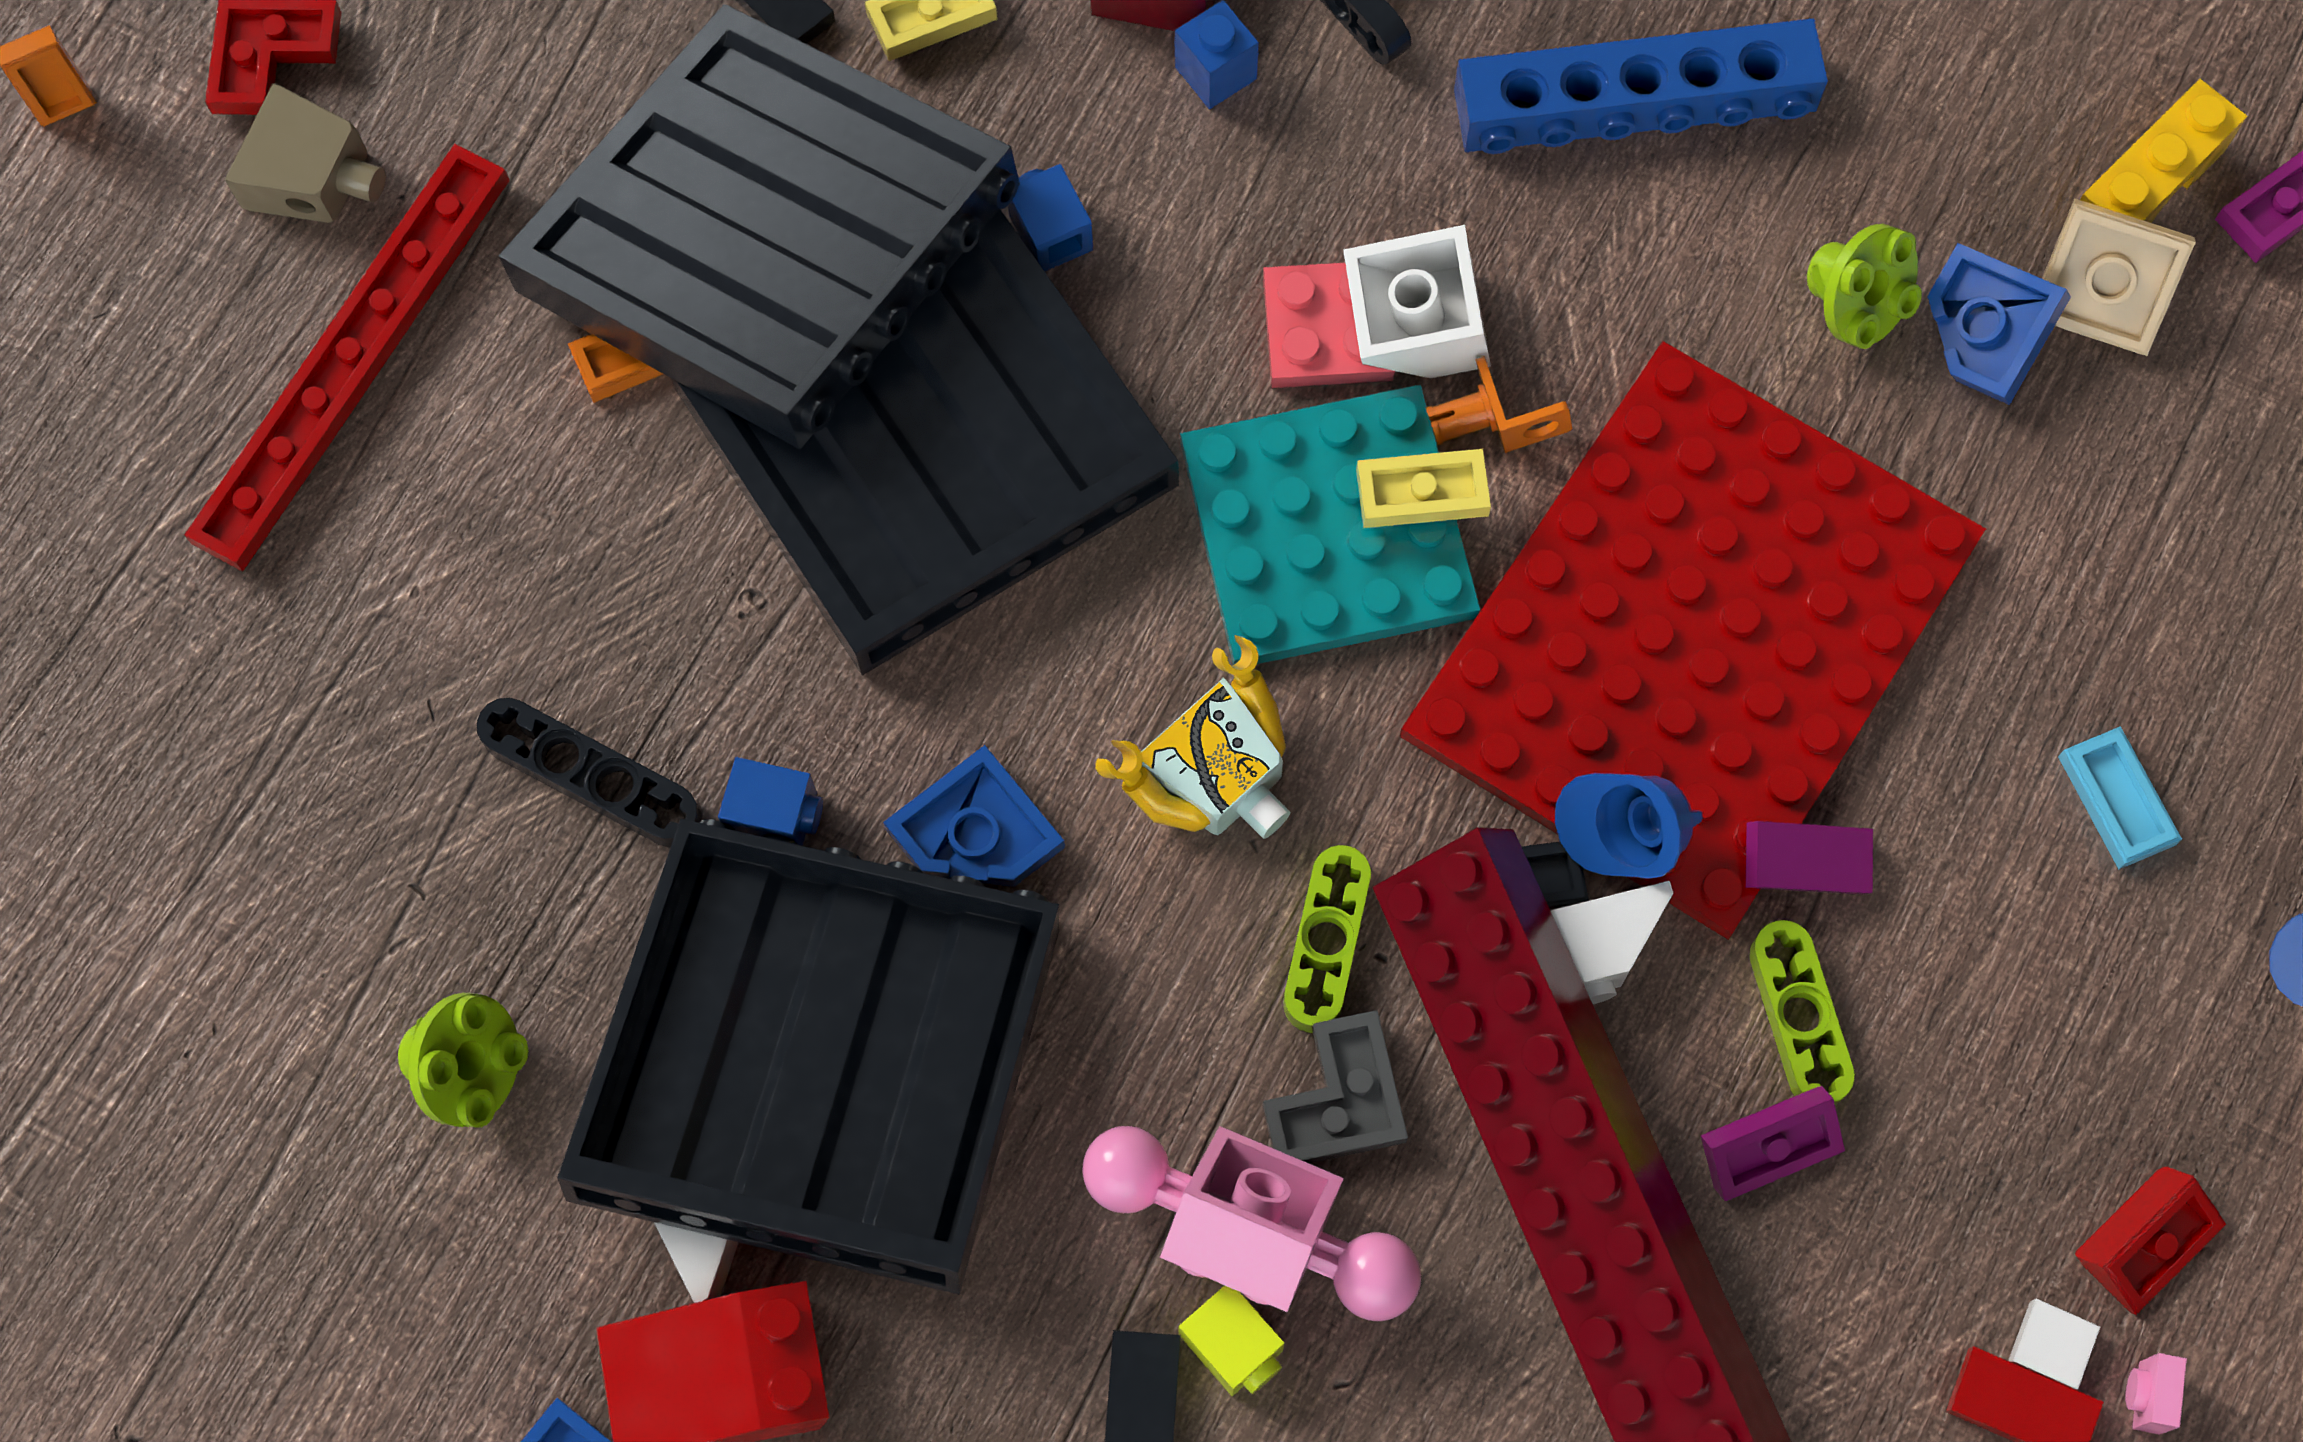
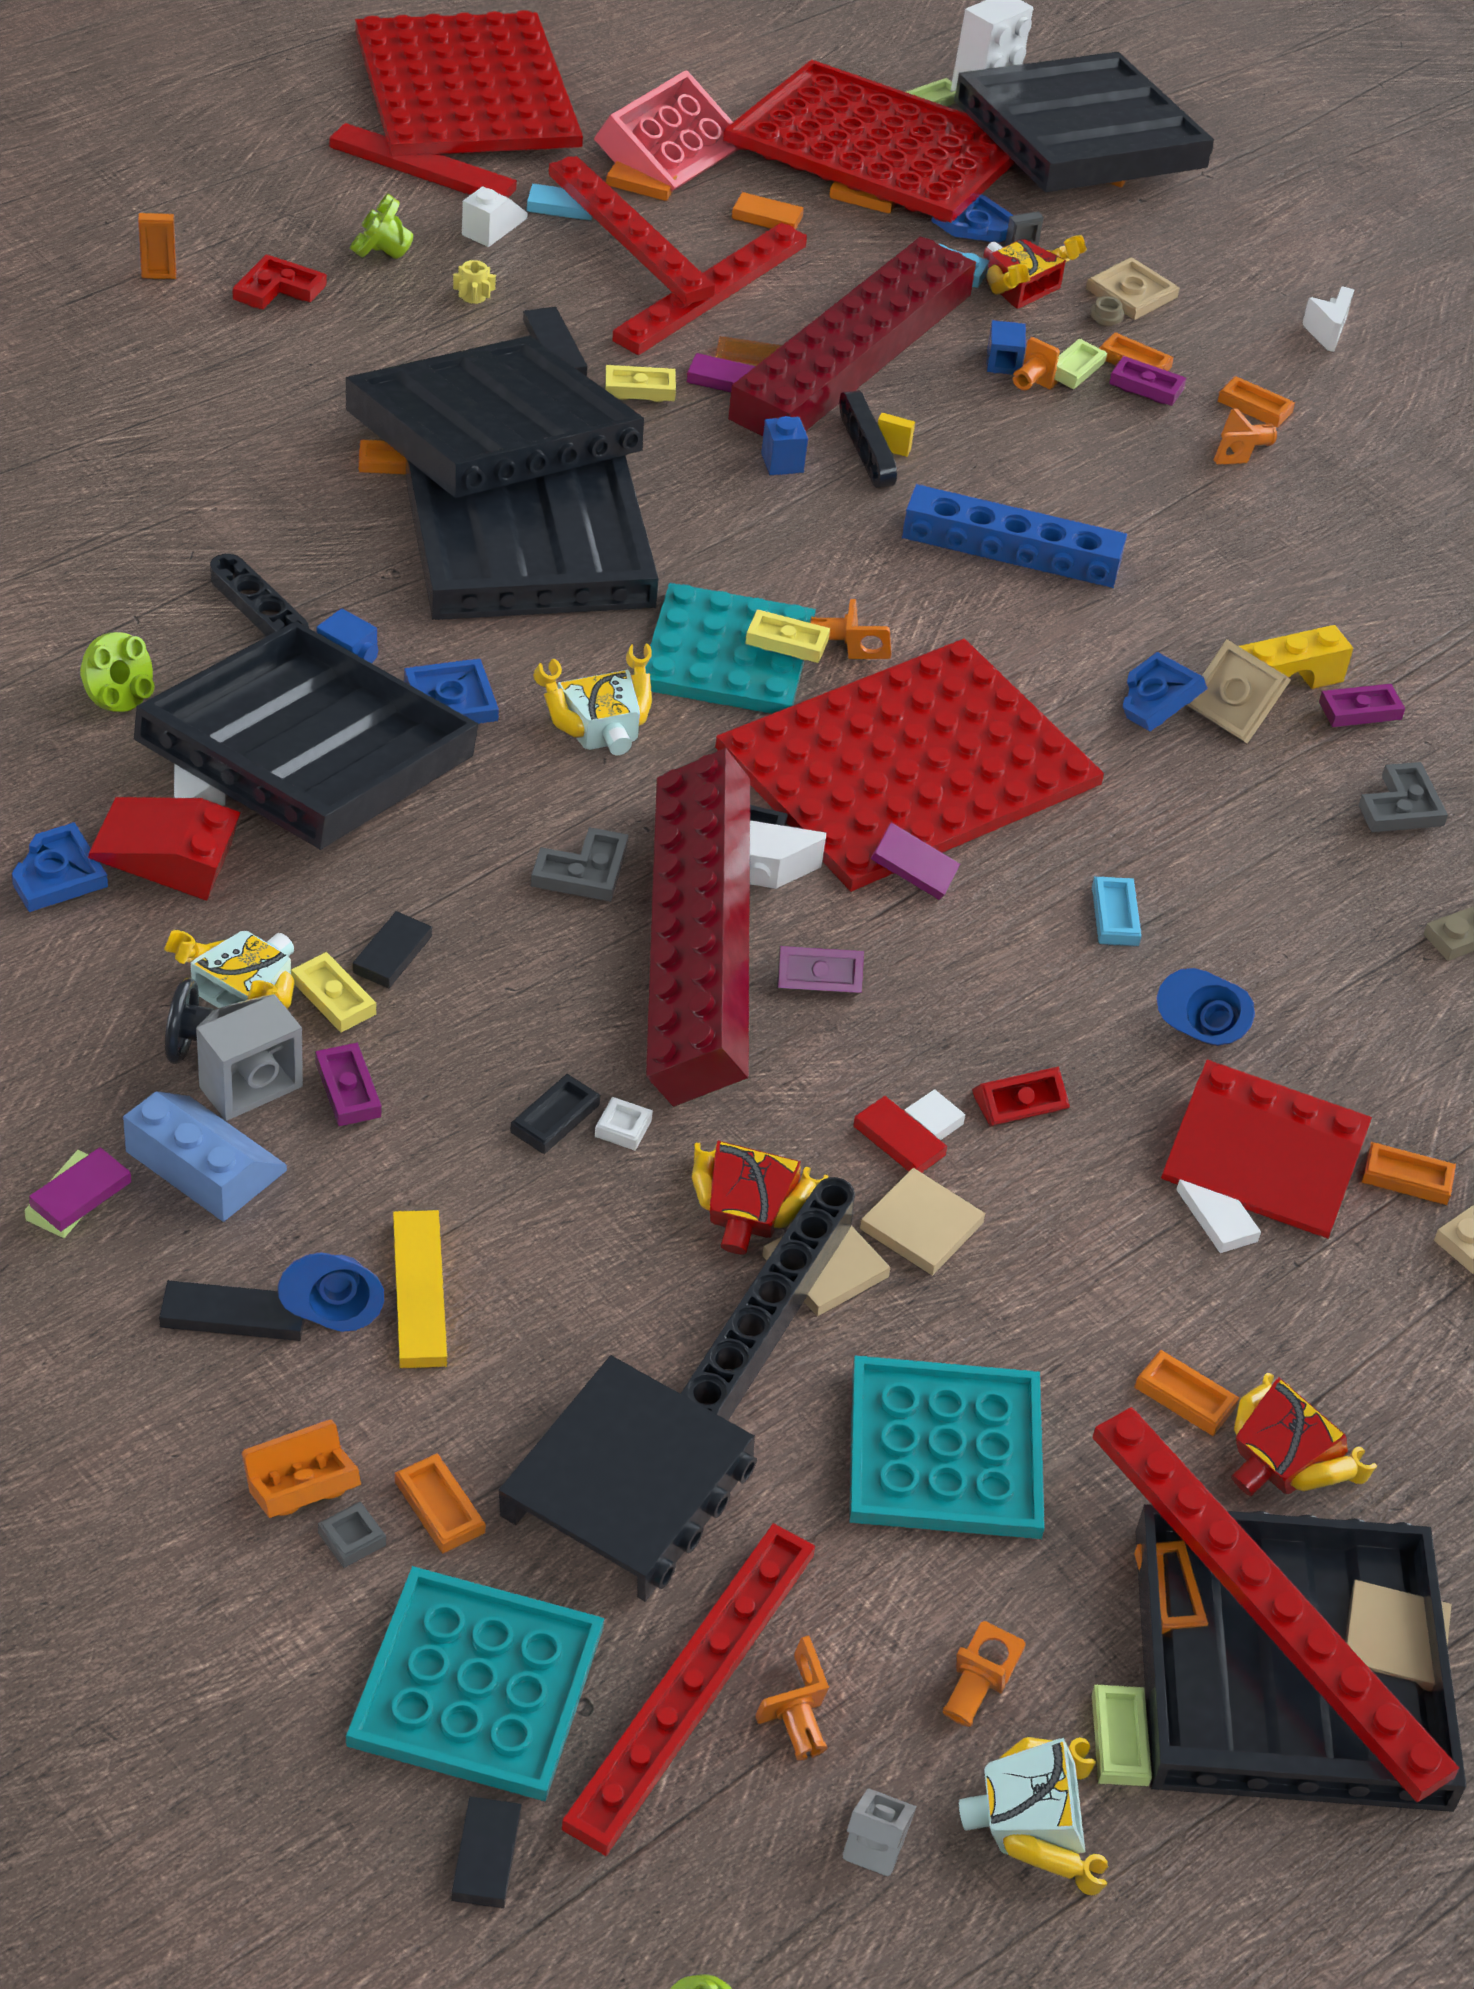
camera: 15 degrees right, 25 degrees down
(301, 161) = (266, 326): dark tan torso -> none
(347, 358) = (238, 406): red plate -> none
(1050, 217) = (652, 477): blue brick -> none
(1233, 1341) = (459, 935): neon yellow brick -> none
(1252, 1221) = (501, 879): bright pink brick -> none
(1313, 328) = (780, 572): coral plate -> none
(1353, 898) = (621, 791): lime beam -> none
(1417, 304) = (834, 570): white slope -> none
(1624, 824) = (816, 796): blue piece -> none
(1804, 963) = (882, 919): lime beam -> none
(1866, 283) = (1095, 647): lime plate -> none
(2156, 1393) = (980, 1151): bright pink plate -> none

